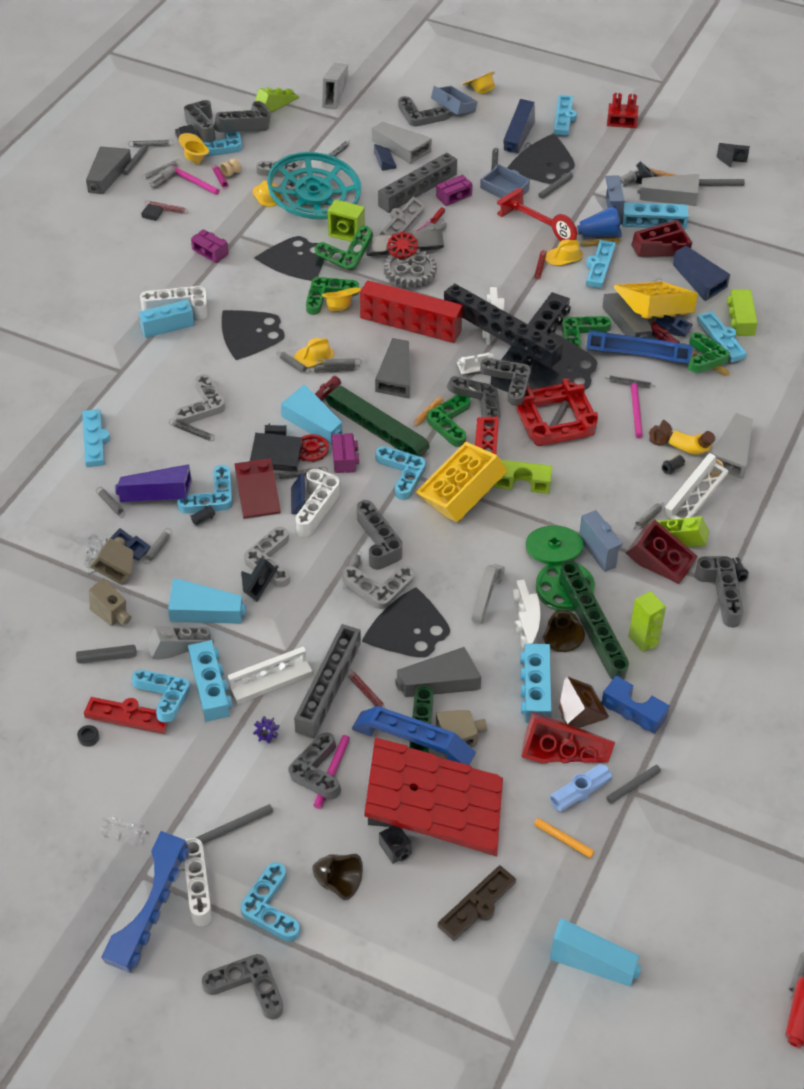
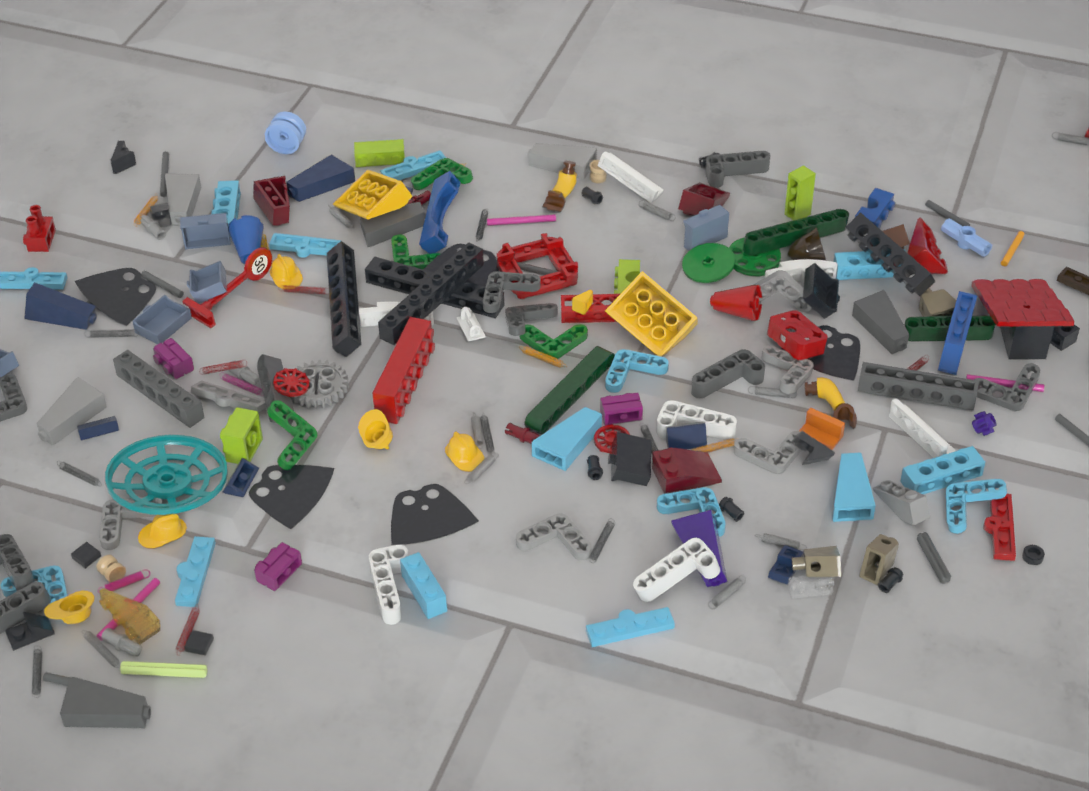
camera: 95 degrees left, 5 degrees down
(90, 617) = (894, 575): none -> black pin
(132, 196) = (163, 669): none -> yellowish green axle
(132, 462) = (691, 555): none -> white beam
(179, 175) = (135, 617): none -> clear yellow slope
(221, 208) = (194, 571): none -> medium azure hinge
(251, 158) = (86, 554): none -> black tile
(287, 512) = (714, 448): none -> light orange piece
(290, 598) = (823, 428): none -> orange panel
(311, 230) = (241, 478): none -> dark blue slope
(319, 287) = (354, 457): green beam -> none
(331, 608) = (828, 390): none -> piece
(394, 371) = (488, 381): dark grey slope -> none
(422, 593) = (797, 335): none -> red axle
(476, 556) = (739, 302): none -> red cone
(478, 426) = (582, 302): none -> yellow slope
(488, 623) = (820, 291): none -> black container
(519, 280) = (343, 299): none -> black brick
(525, 680) = (922, 278): none -> black brick
(543, 201) = (207, 282): none -> sand blue container
(690, 531) = (677, 183): lime slope -> none
(763, 244) = (285, 132): none -> light blue wheel

